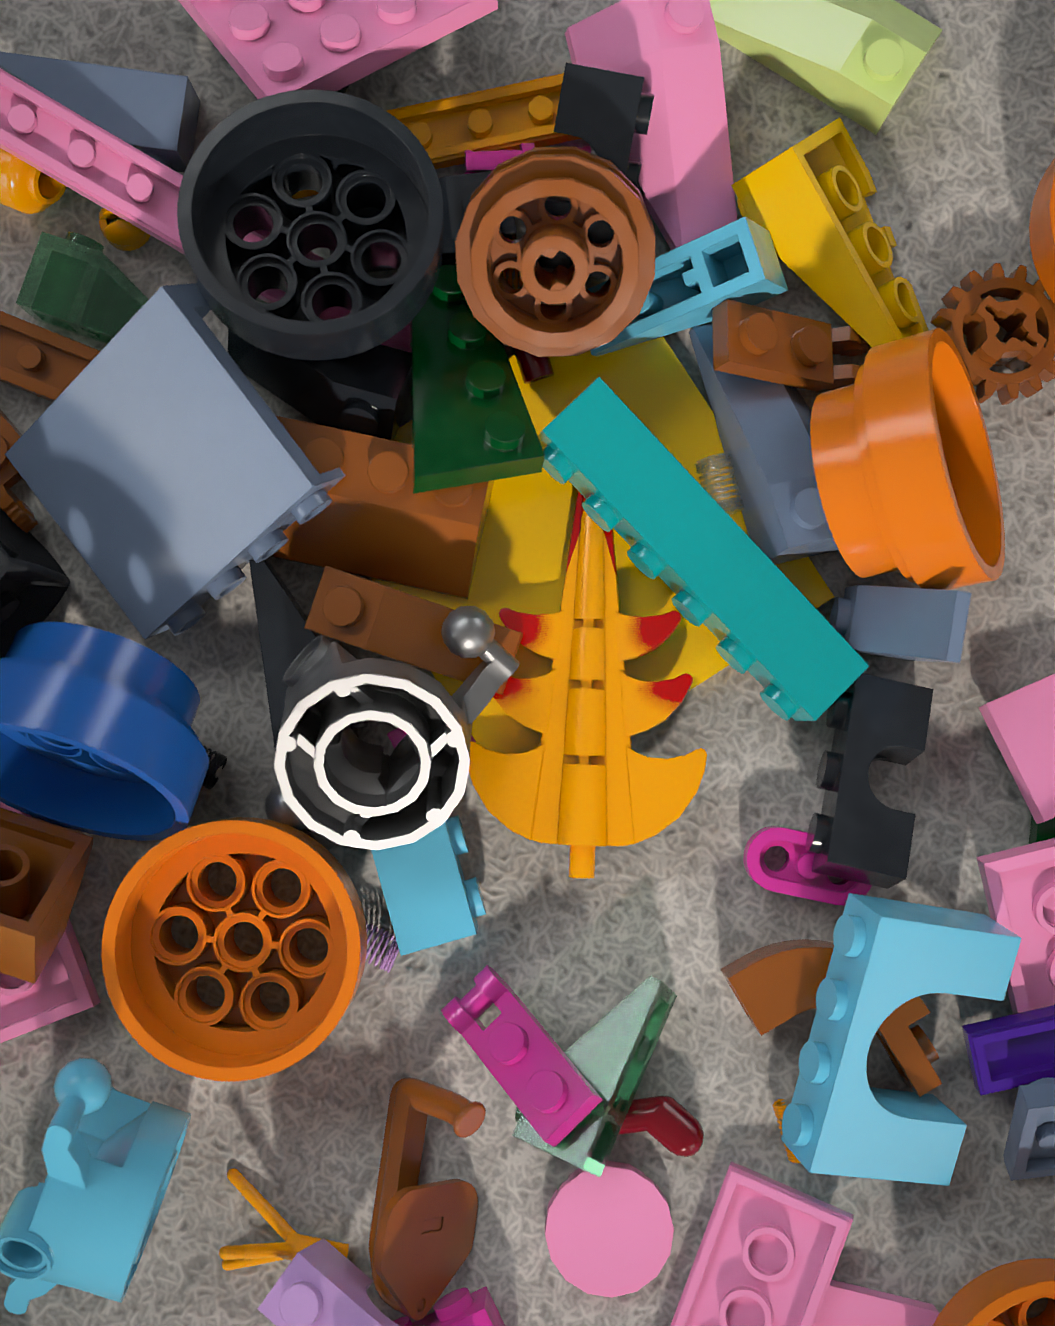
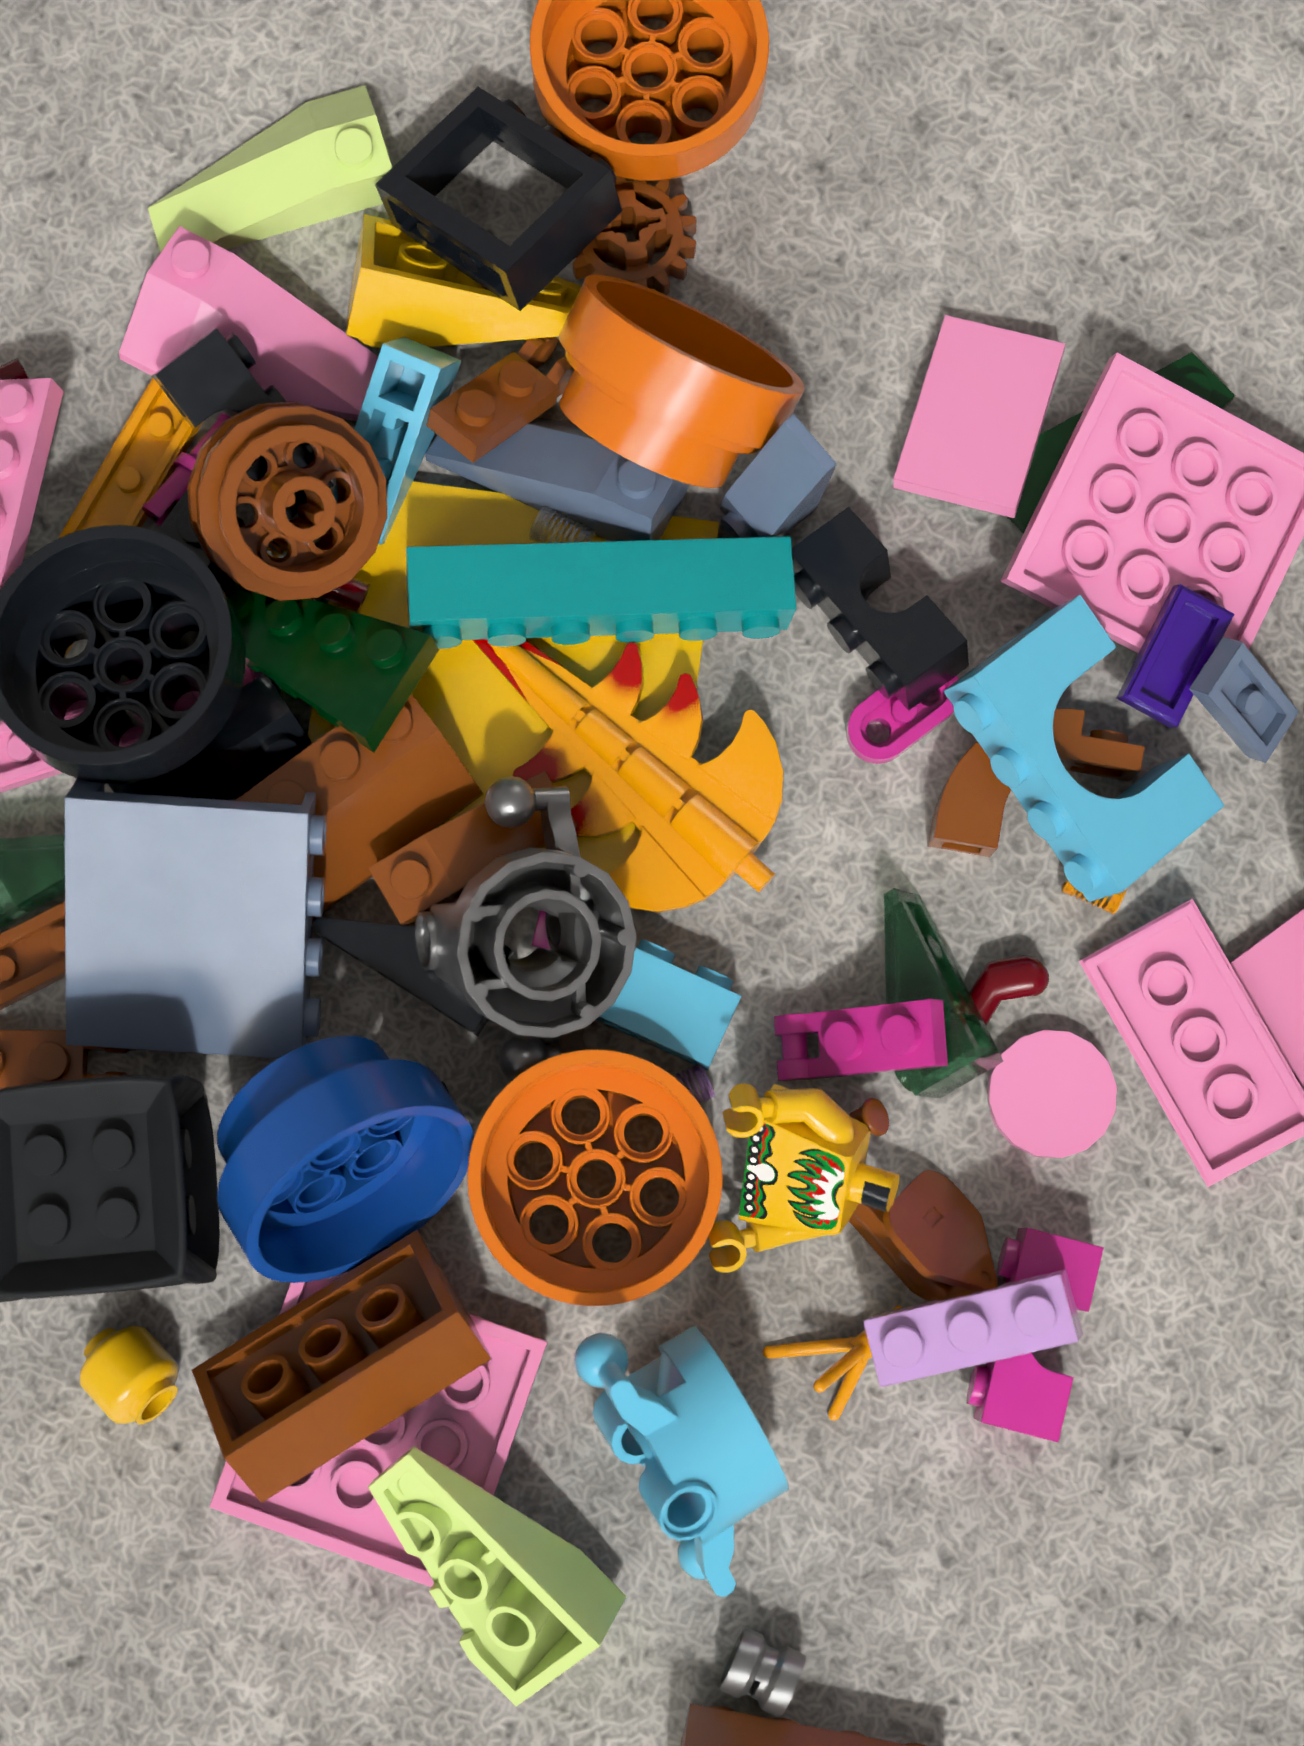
camera: 50 degrees left, 5 degrees down
(376, 1097) = (799, 1172): none -> yellow torso
(945, 275) = (542, 250): none -> black window

